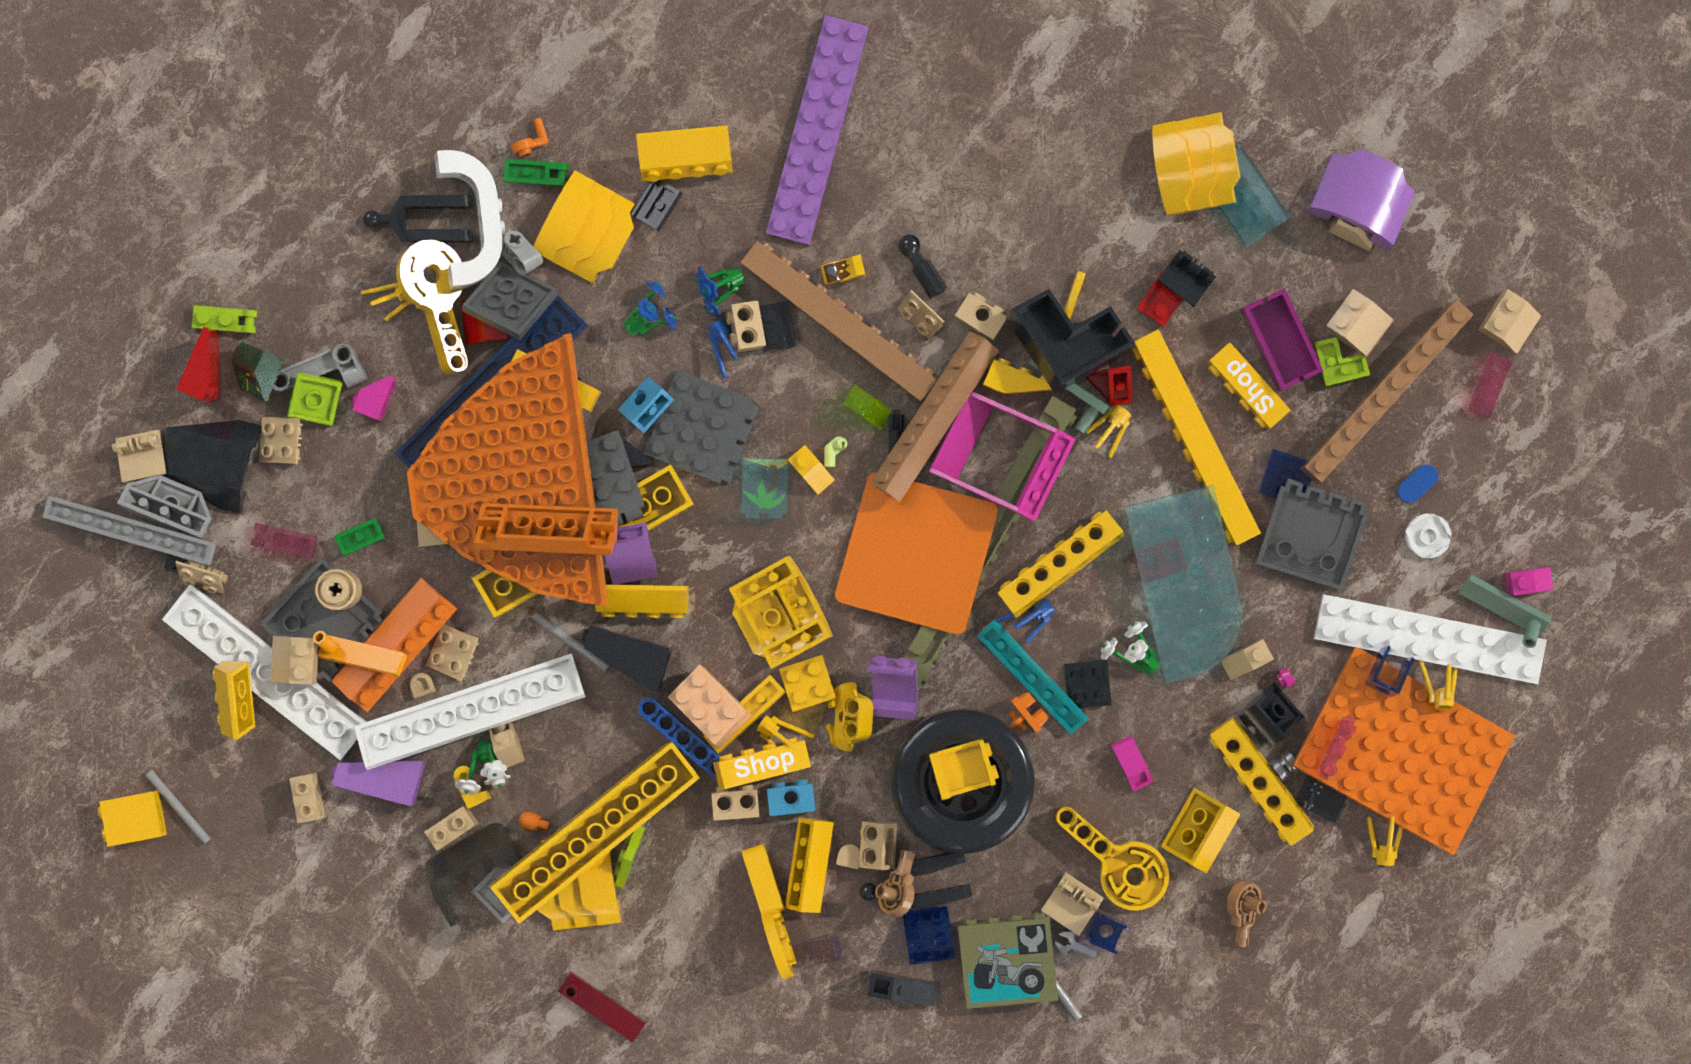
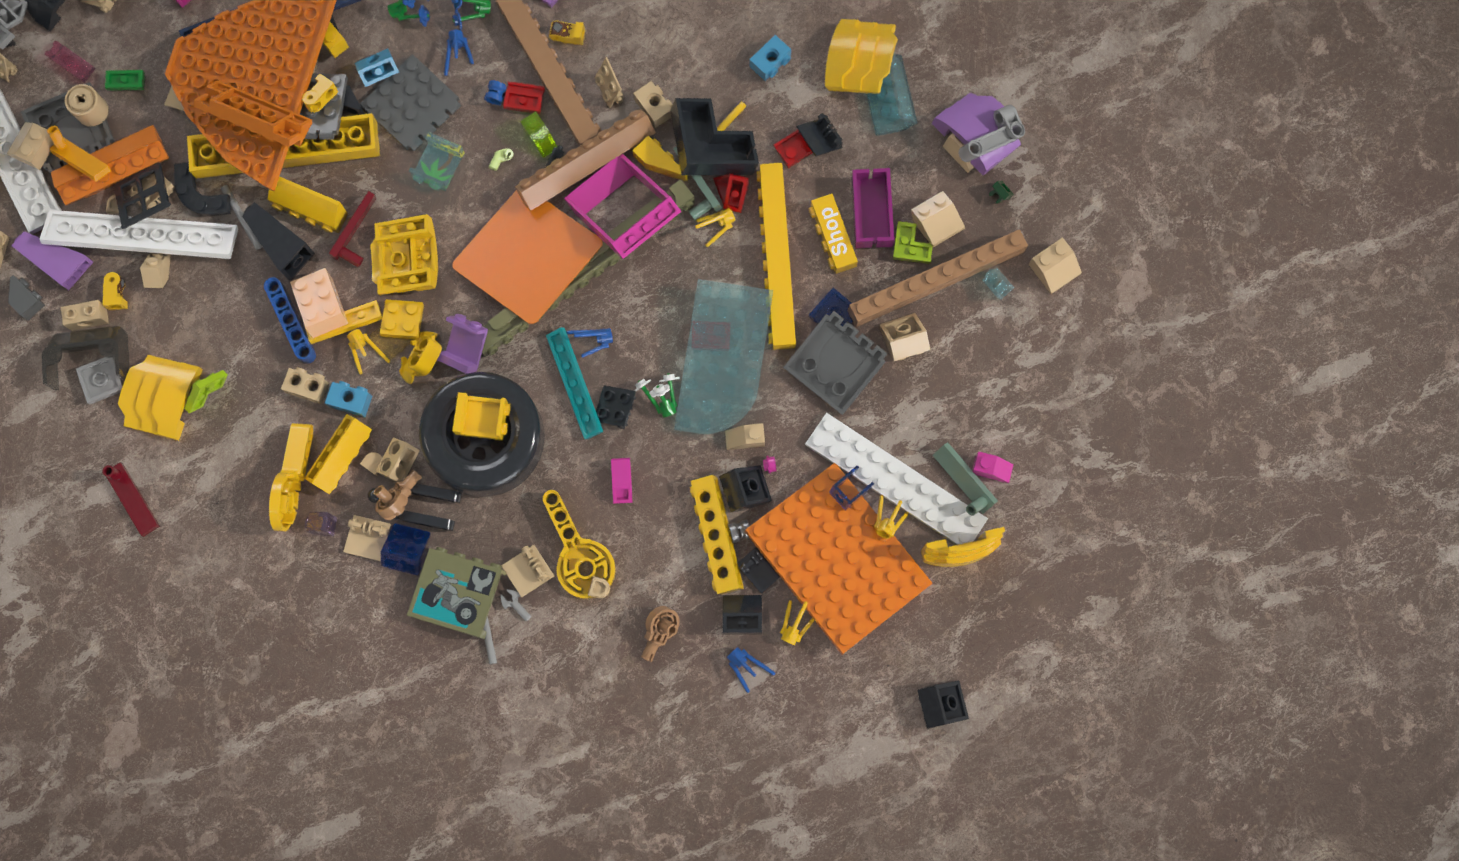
camera: 20 degrees right, 10 degrees down
(371, 837) = (22, 299): none -> dark grey slope
(451, 666) = (159, 187): none -> black window
(492, 770) = (132, 278): plant -> none
(507, 643) = (191, 197): none -> black plate
(533, 822) = (148, 338): orange cylinder -> none
(593, 832) = (182, 356): yellow brick -> none
(606, 472) = (319, 94): none -> yellow leg
(632, 555) = (310, 165): medium lavender panel -> none
(701, 633) = (339, 248): none -> dark red piece
(752, 326) = (480, 43): tan brick -> none
(762, 764) = (336, 361): yellow brick -> none
(777, 326) = (500, 53): black plate -> none
(793, 377) = (495, 92): none -> blue wheel
(811, 469) = (476, 163): yellow slope -> none
(828, 369) = (524, 97): none -> red plate
(880, 941) = (366, 537): none -> tan hinge
(902, 988) = (365, 579): black slope -> none
(923, 268) = (626, 52): black piece -> none
(1035, 720) = (560, 416): orange hips -> none
(1057, 575) = (642, 310): yellow brick -> none
(1095, 193) = (773, 48): none -> dark azure brick
(1107, 943) = (534, 604): clear blue piece -> none
(1159, 891) = (599, 588): none -> tan tile
(1200, 830) = (653, 554): yellow slope -> none
(1326, 856) = (742, 614): none -> black slope
(1336, 748) = (784, 527): clear pink plate -> none
(1339, 903) = (738, 658): none -> blue plant
(1375, 472) = (905, 337): none -> tan slope
(1401, 189) = (1009, 130): none -> light grey piece
(1417, 257) = (1002, 190): none -> dark green tile
(1417, 483) = (934, 359): blue tile -> none
(1428, 536) = (926, 402): white tile -> none
(1457, 376) = (1003, 288): none -> clear light blue brick
(1489, 385) = (1020, 308): clear pink plate -> none
(1560, 671) = (941, 555): none -> yellow slope
(1578, 862) = (943, 704): none -> black slope

